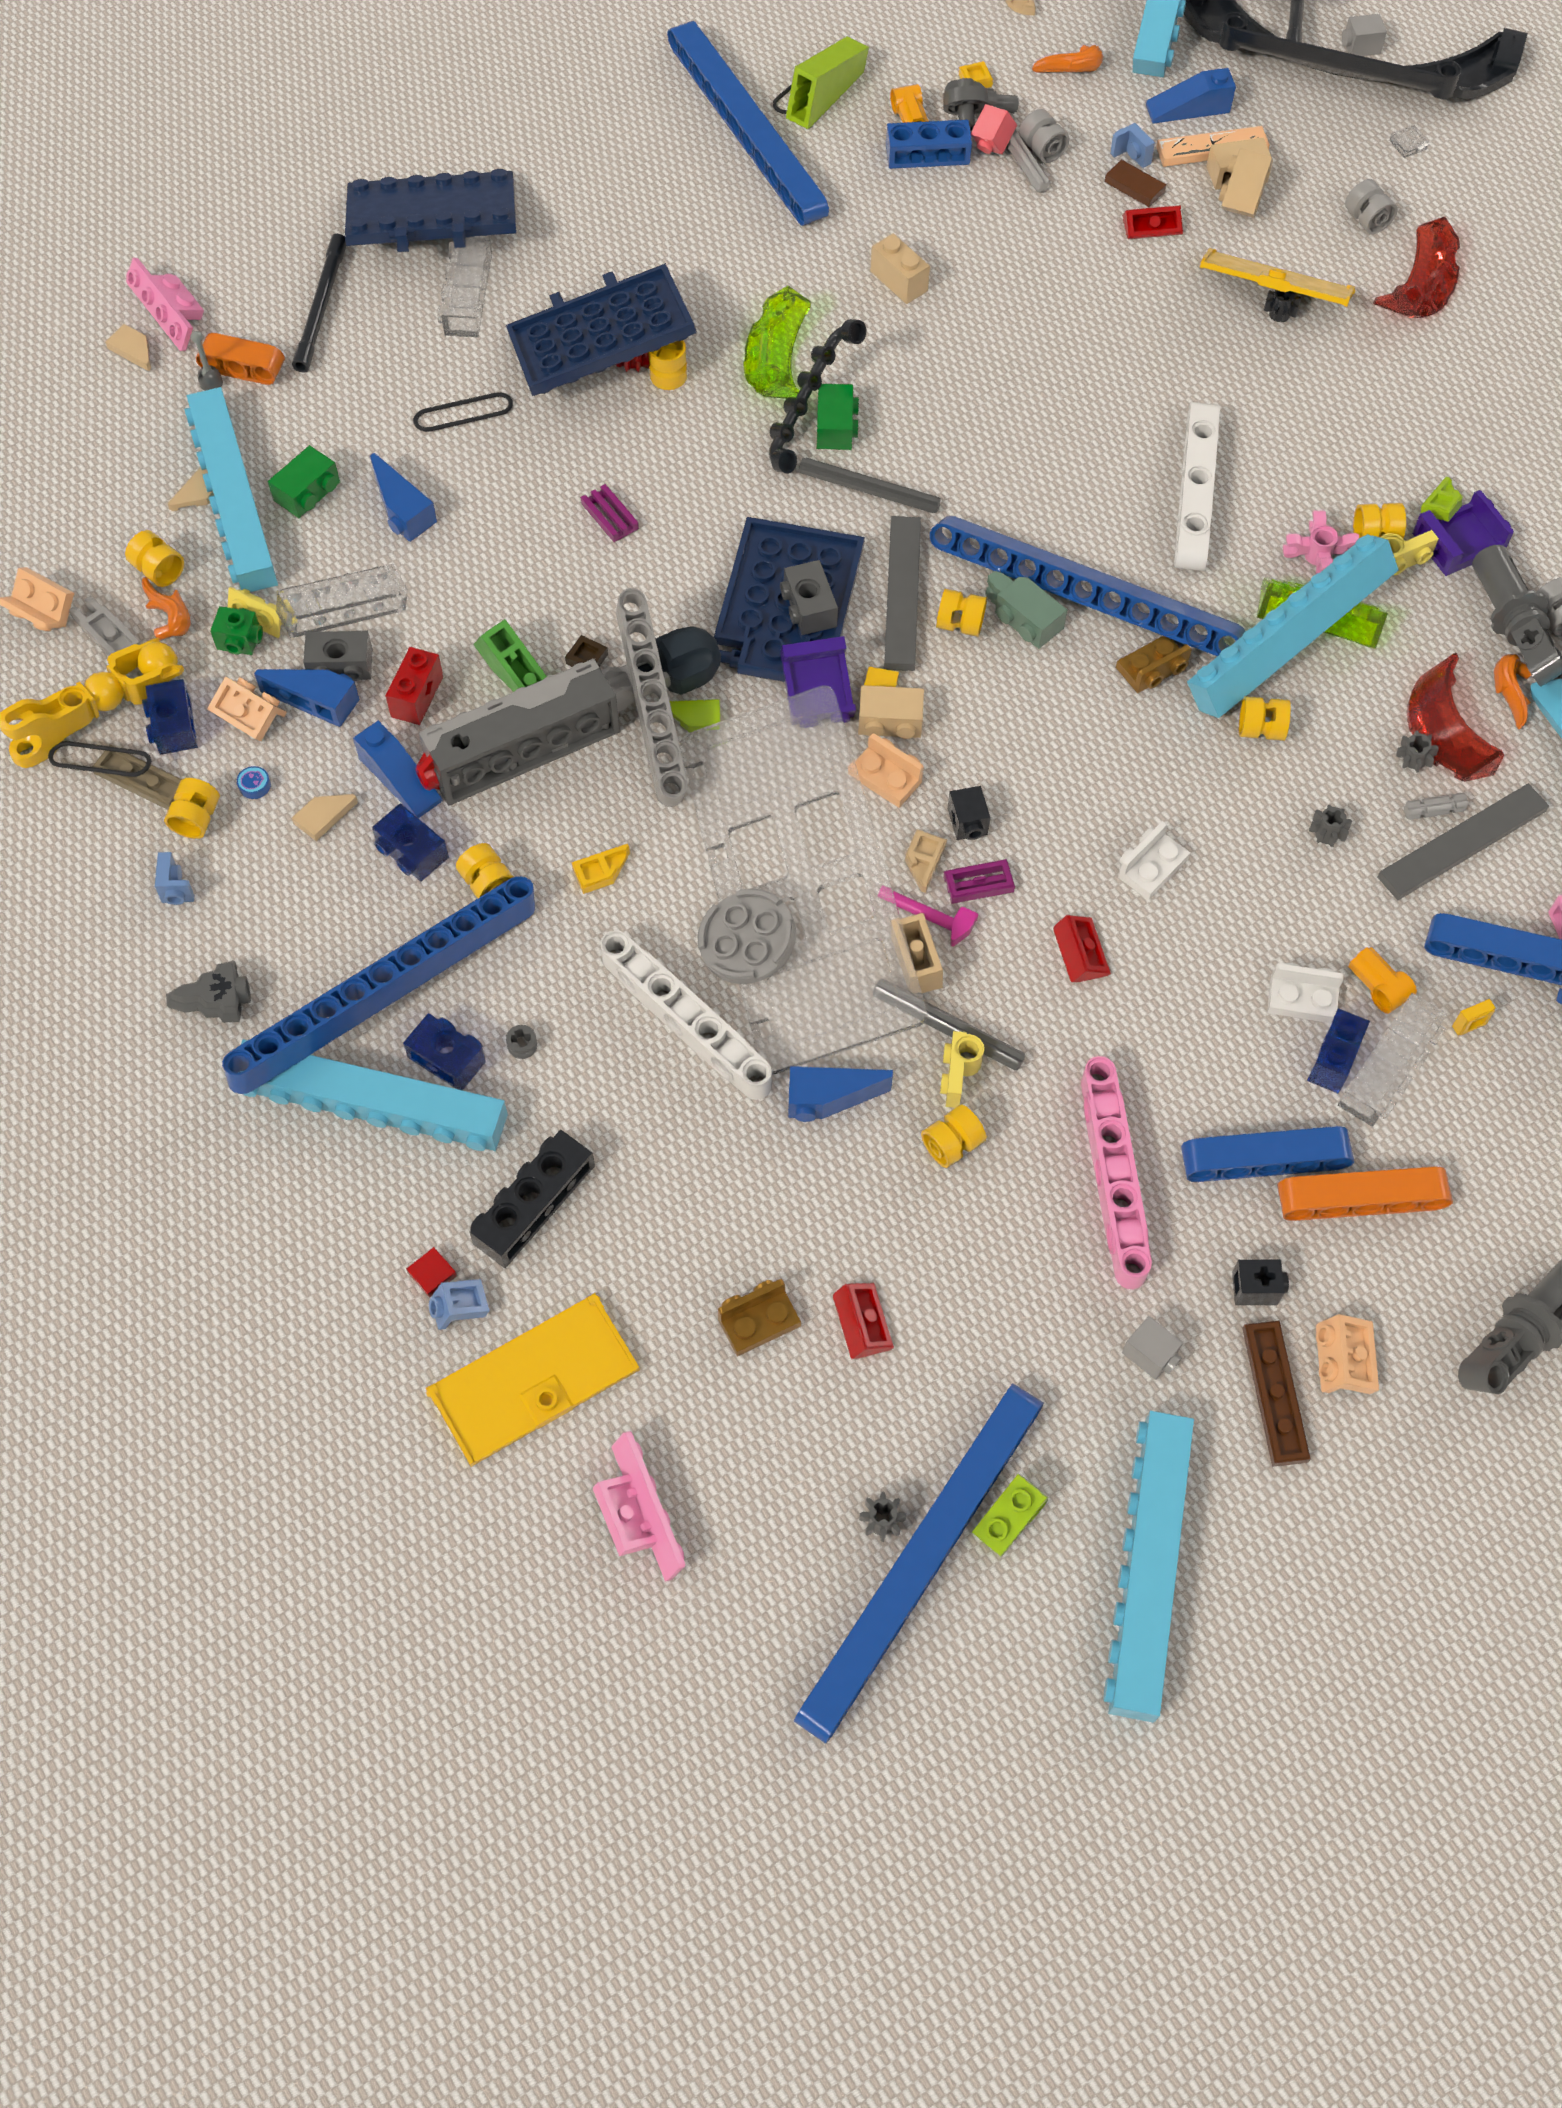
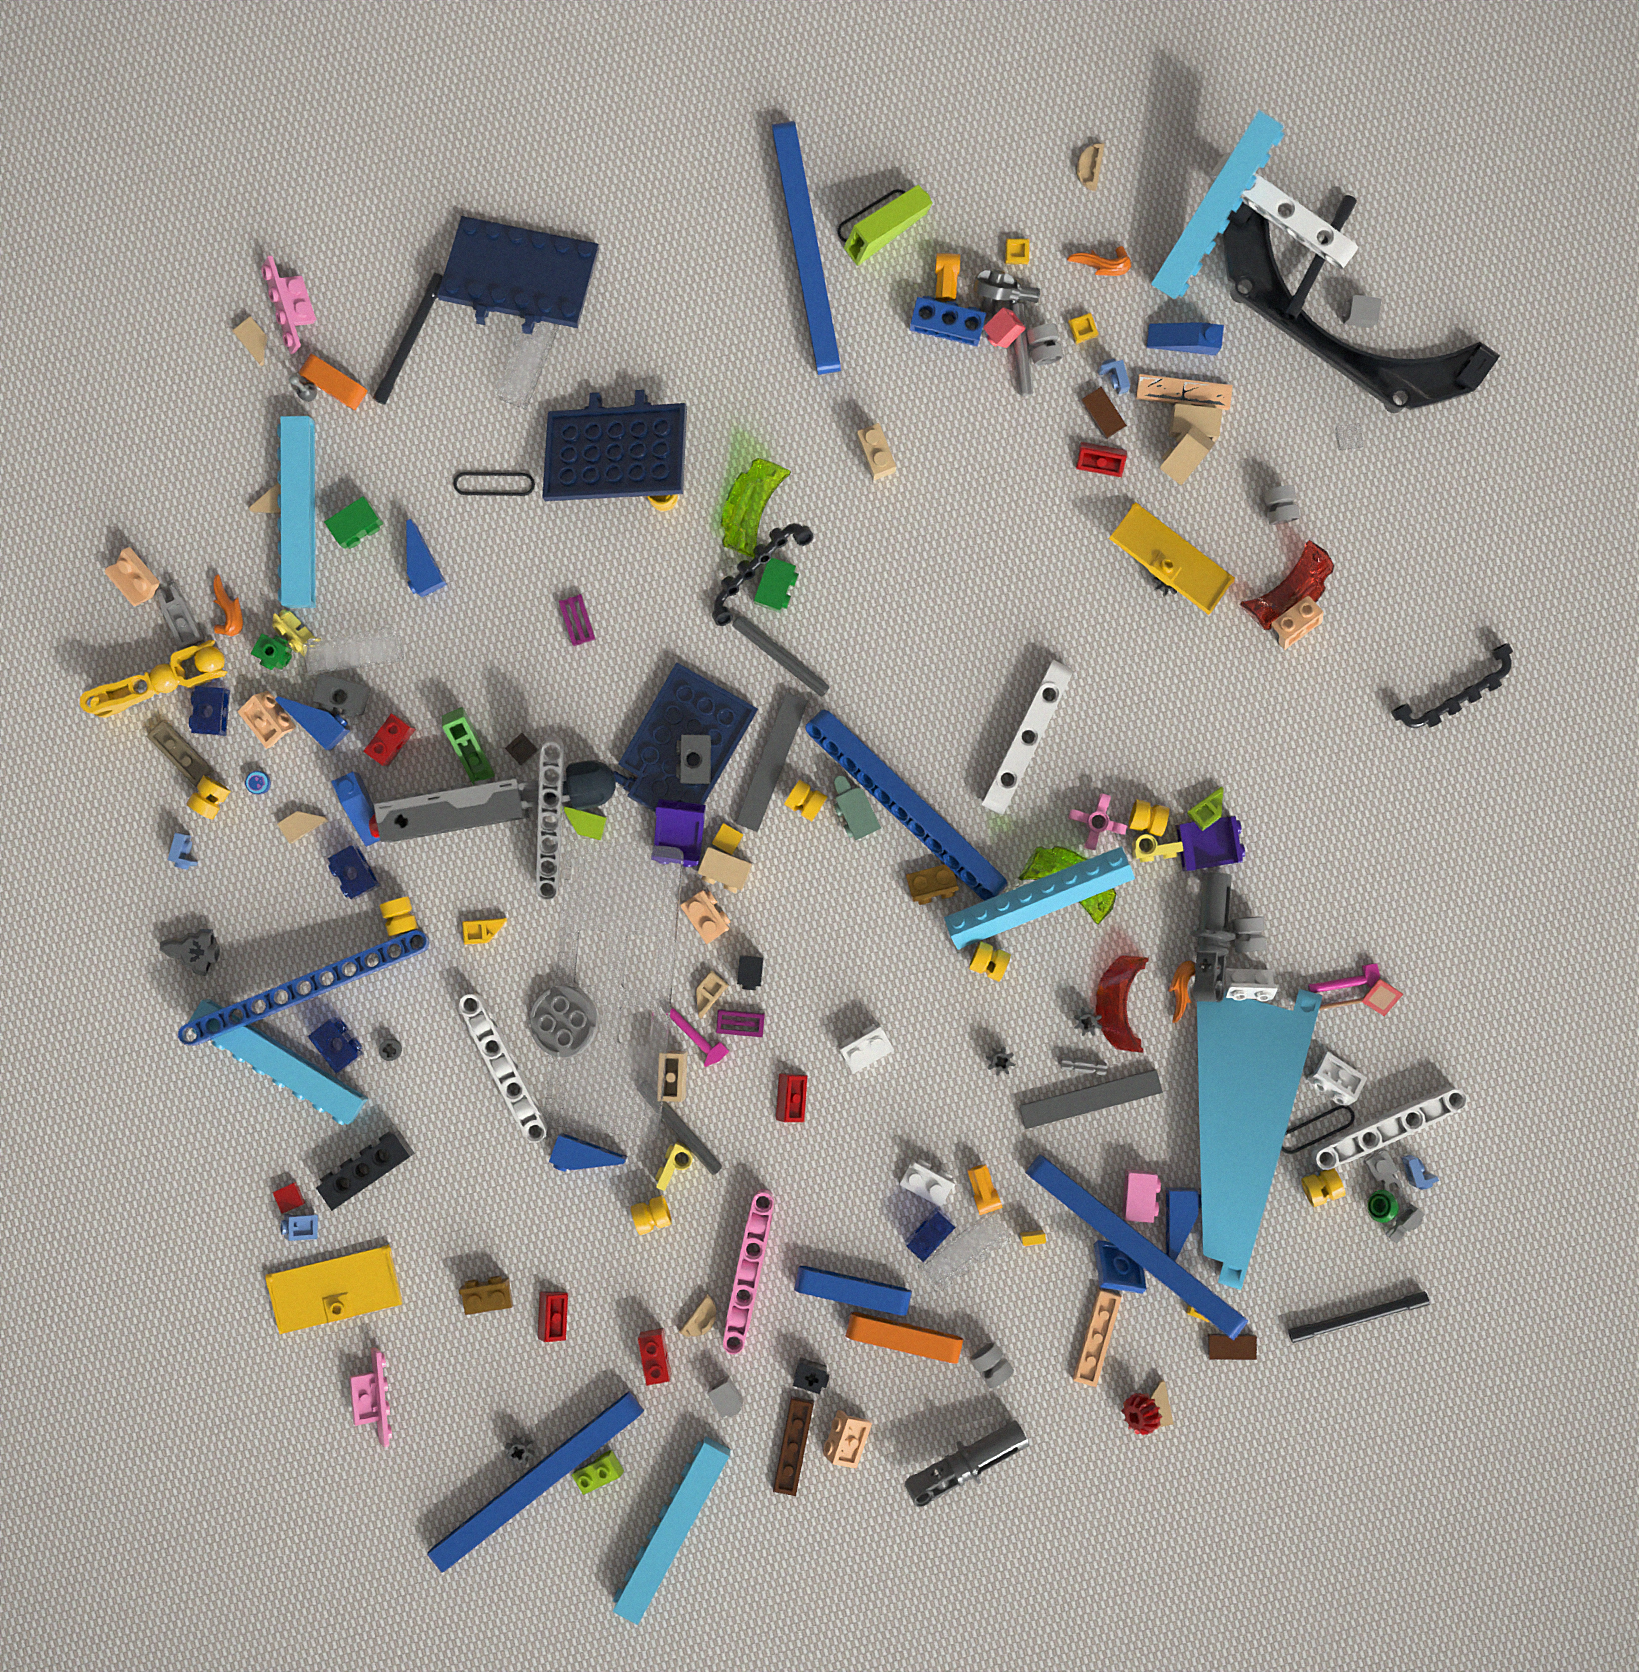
camera: 20 degrees right, 25 degrees up
(100, 770) = (158, 724): black piece -> none
(155, 558) = (224, 560): yellow wheel -> none
(1031, 1321) = (654, 1356): none -> red brick
(1075, 1259) = (701, 1319): none -> tan tile
(1077, 120) = (1083, 328): none -> yellow tile
(1448, 301) = (1297, 621): none -> light nougat bracket
(1490, 1180) = (994, 1368): none -> light grey wheel

